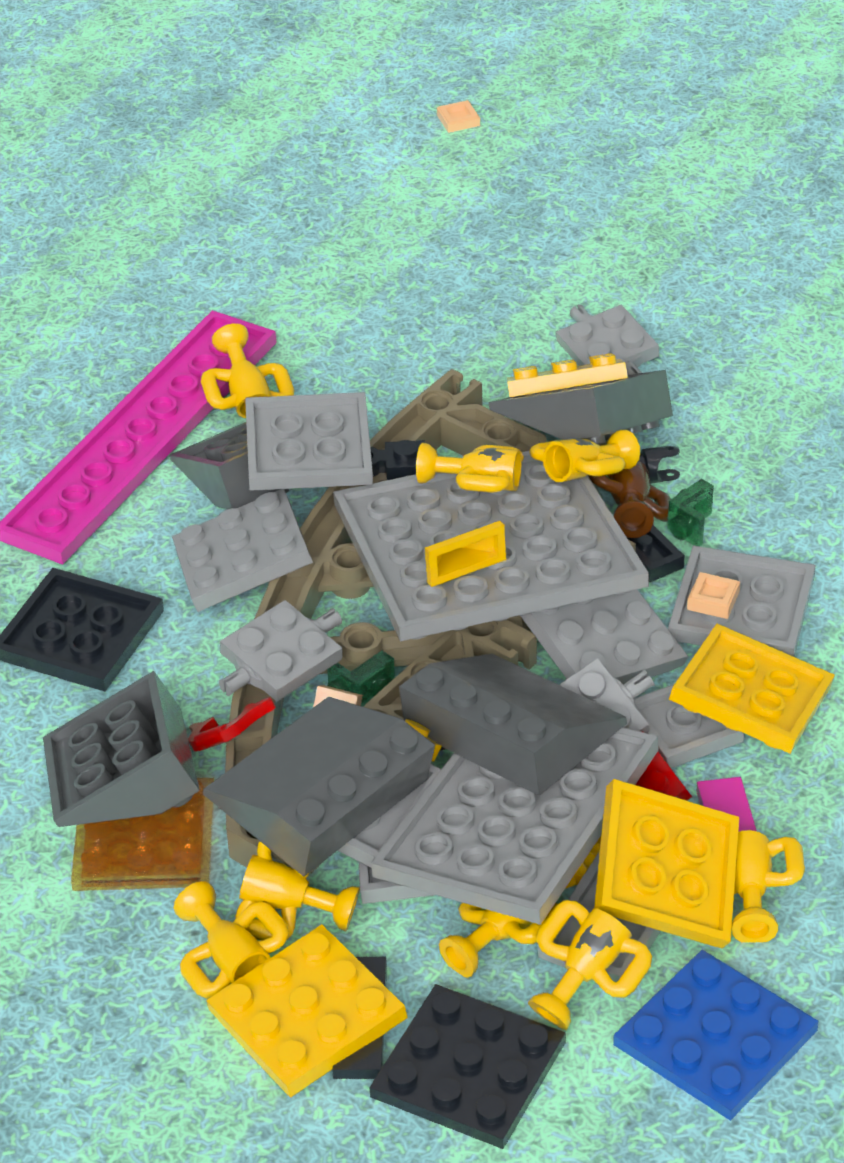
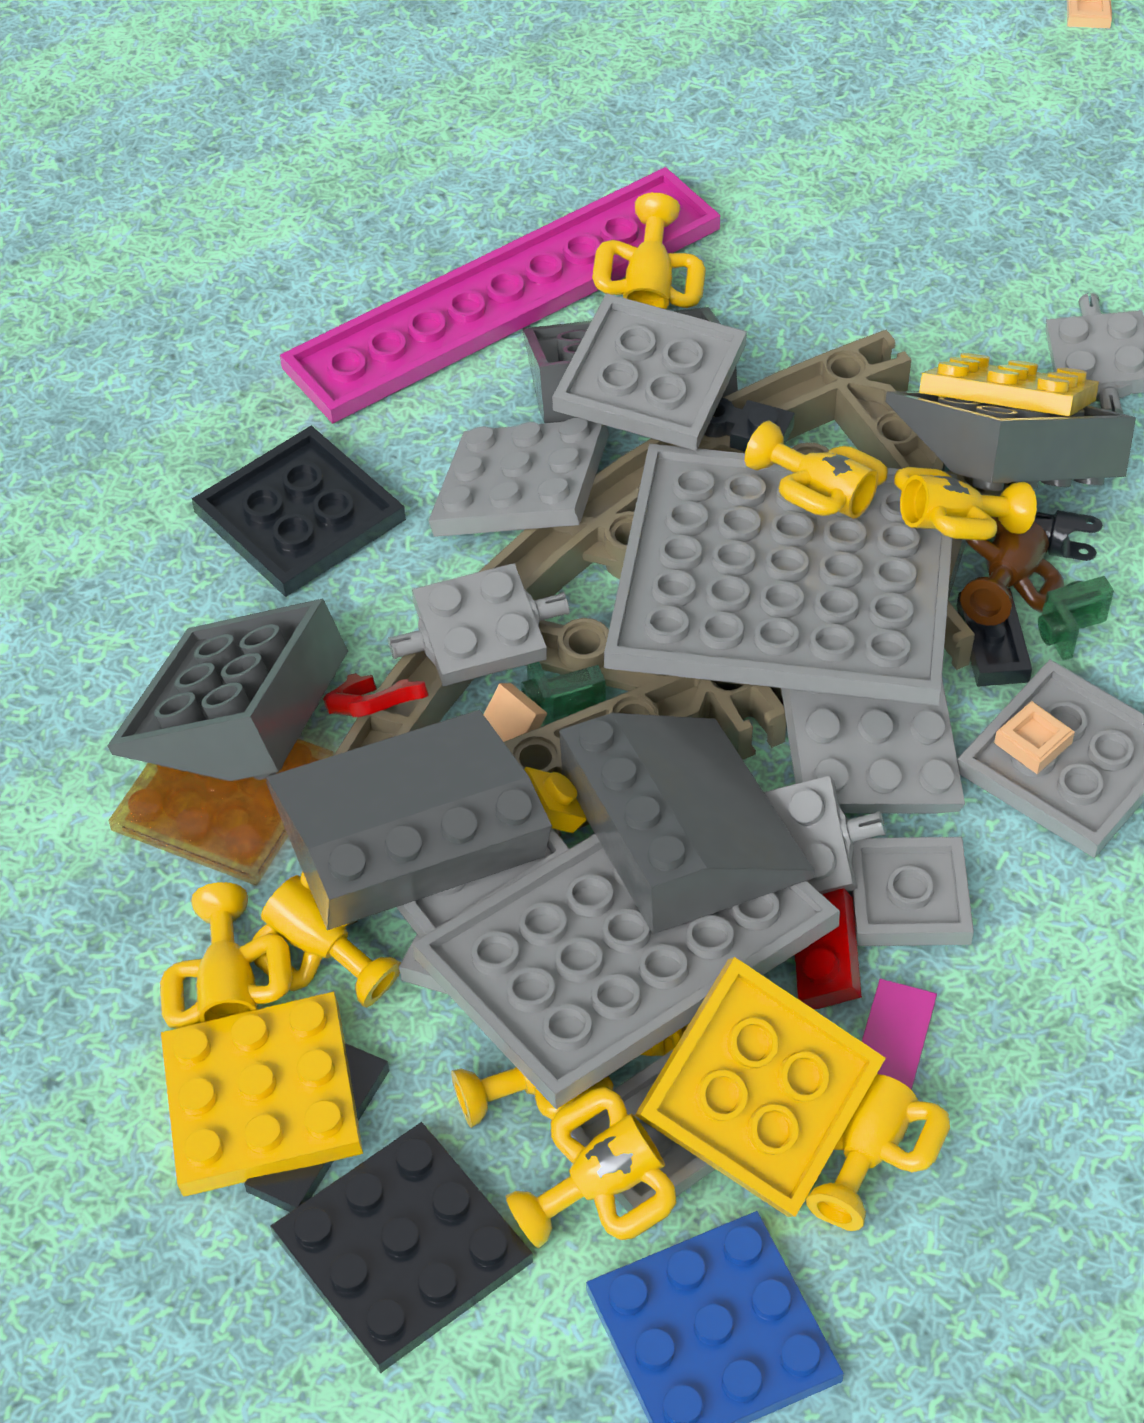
camera: 25 degrees right, 10 degrees up
(465, 553) = (731, 585): yellow slope -> none
(752, 688) = (1011, 882): yellow plate -> none

